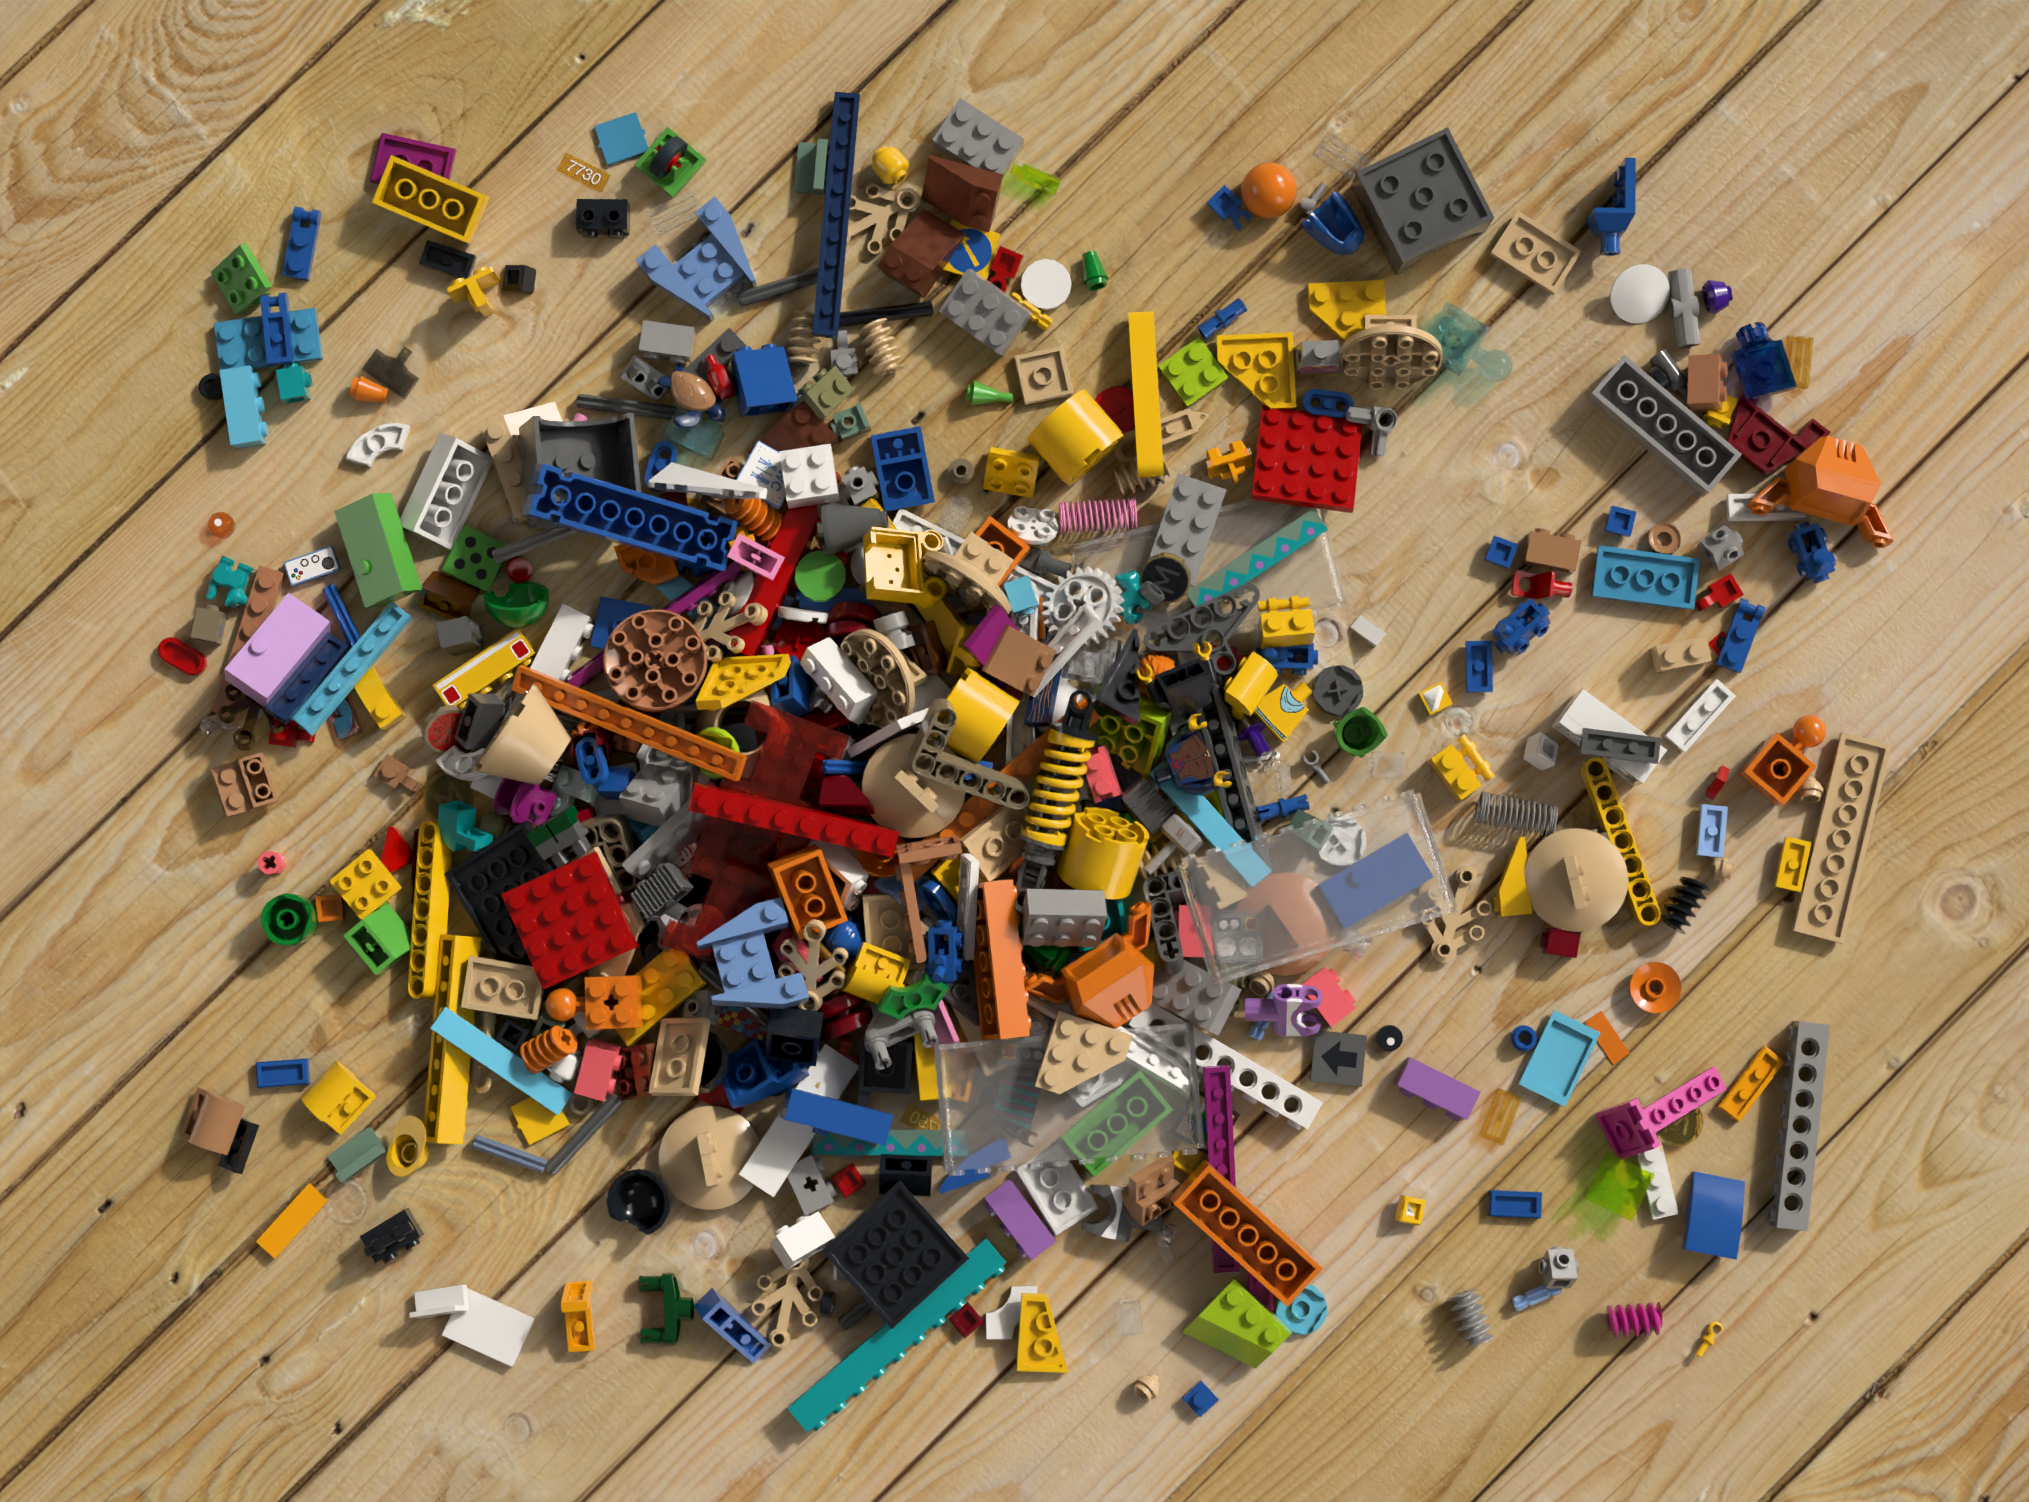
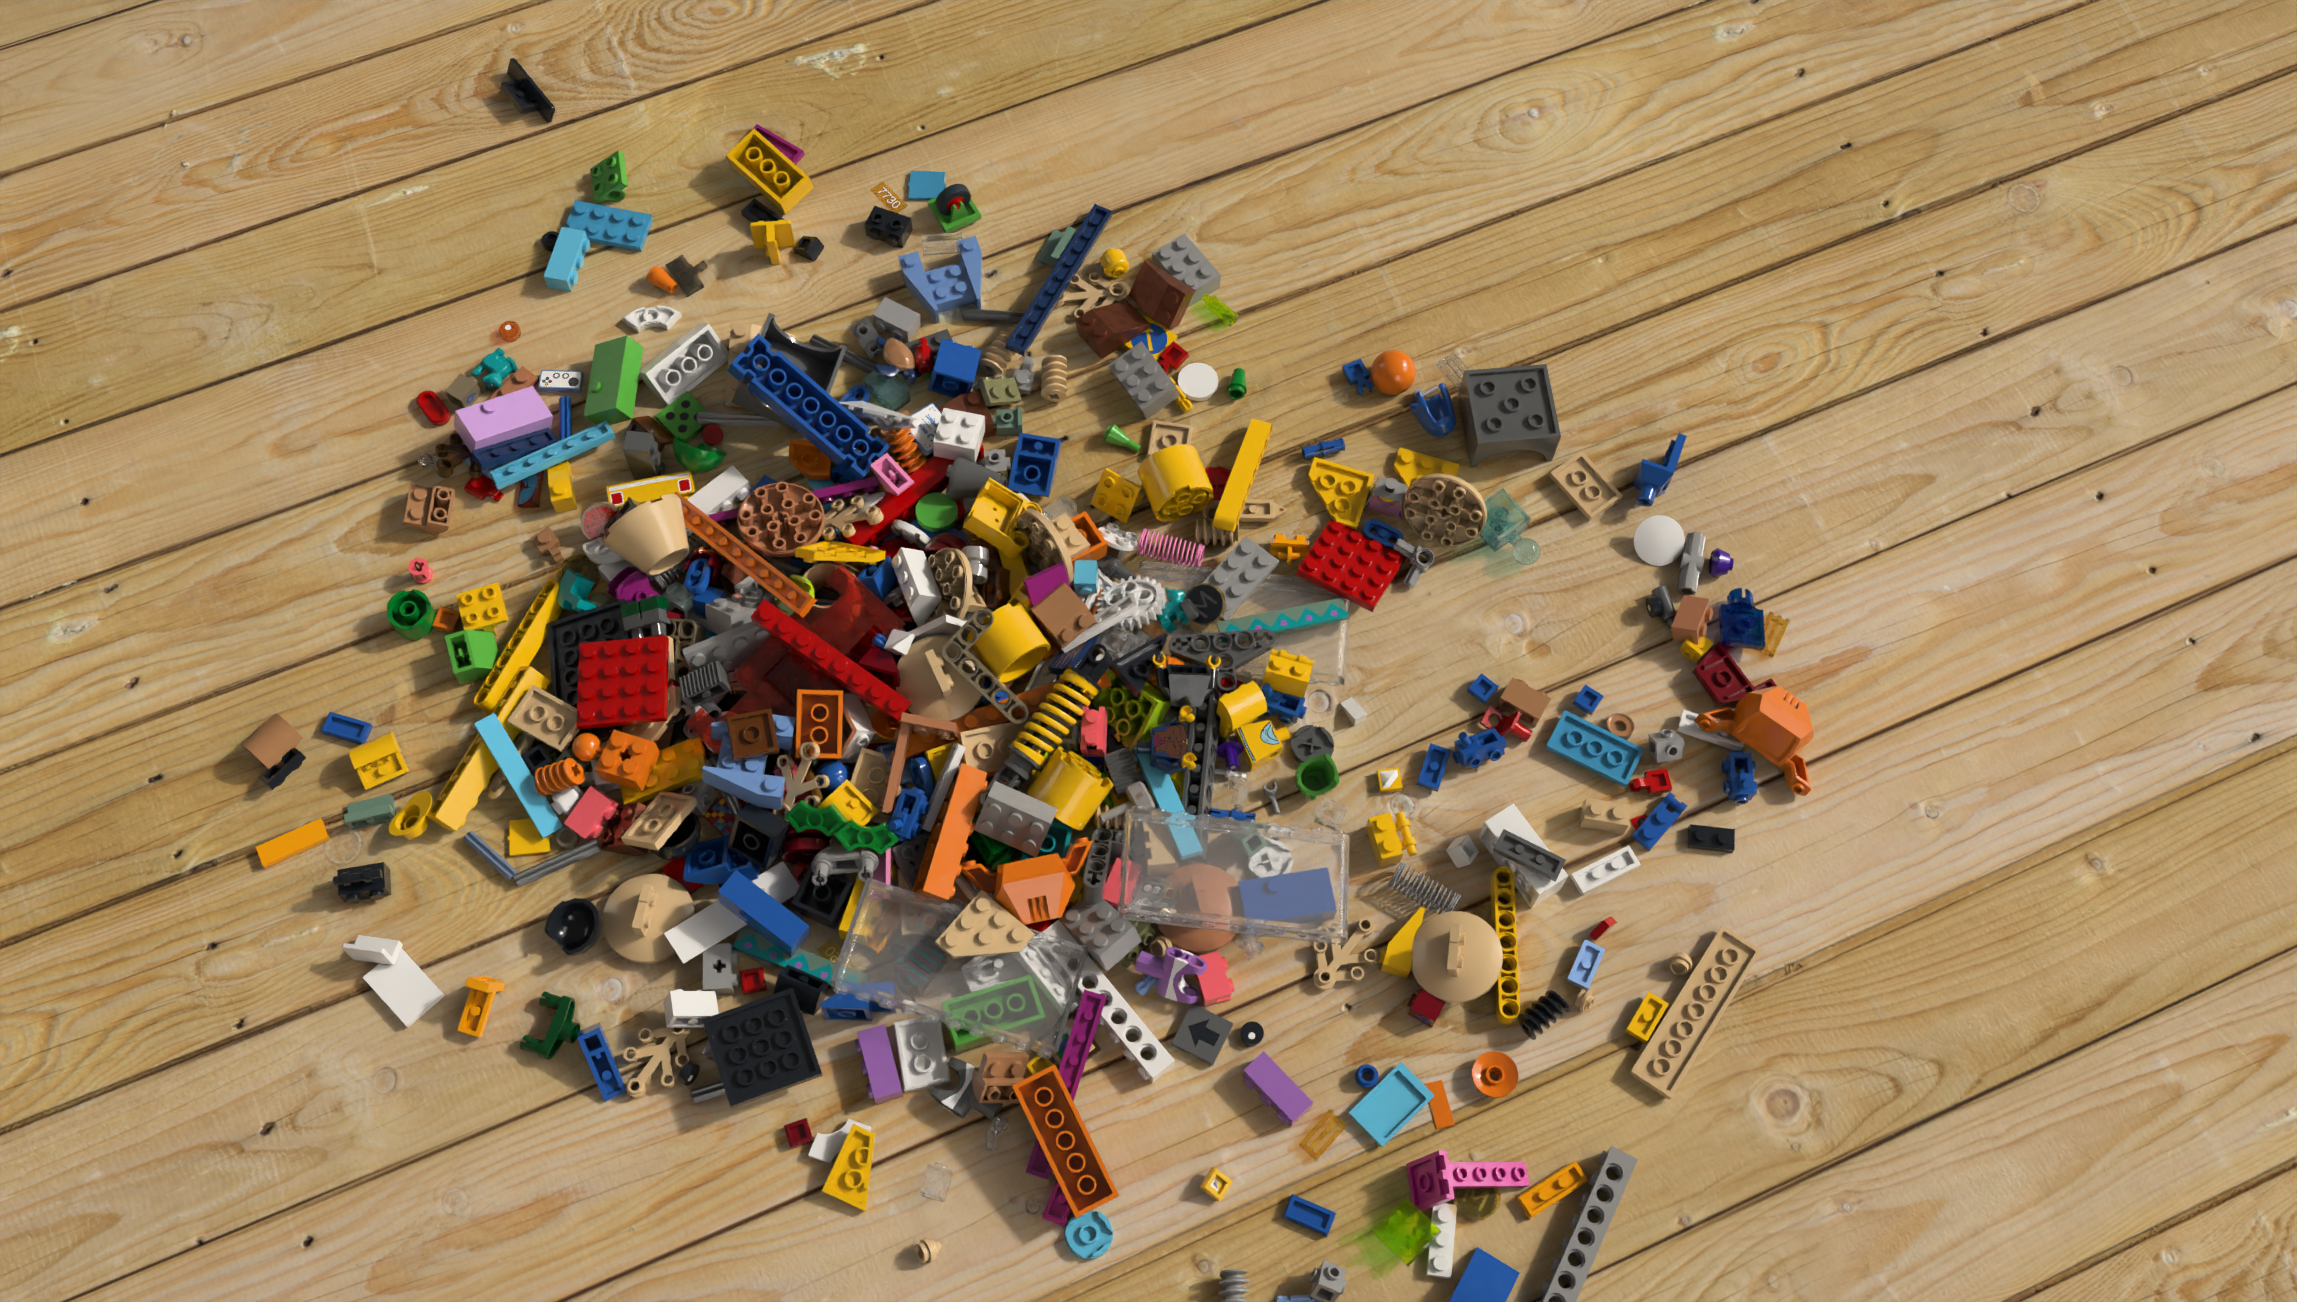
camera: 20 degrees right, 20 degrees down
(81, 199) = (525, 93): none -> black bracket
(277, 329) = (616, 215): blue plate -> none
(294, 383) = (611, 257): teal brick -> none
(301, 244) = (664, 173): blue plate -> none
(396, 851) = (518, 596): red slope -> none
(747, 939) = (752, 734): none -> reddish brown tile
(853, 763) = (899, 642): none -> white slope
(862, 996) = (823, 819): none -> green tile
(889, 1344) = (727, 1124): teal brick -> none
(892, 313) = (1072, 360): black axle -> none
(961, 479) = (1075, 489): dark tan plate -> none
(1193, 372) = (1286, 478): lime plate -> none
(1200, 1398) = (970, 1279): blue plate -> none
(1239, 1325) = (1027, 1224): lime wedge -> none
(1664, 426) = (1647, 640): light grey brick -> none
(1794, 766) = (1663, 920): orange brick -> none
(1801, 634) = (1711, 838): none -> black plate

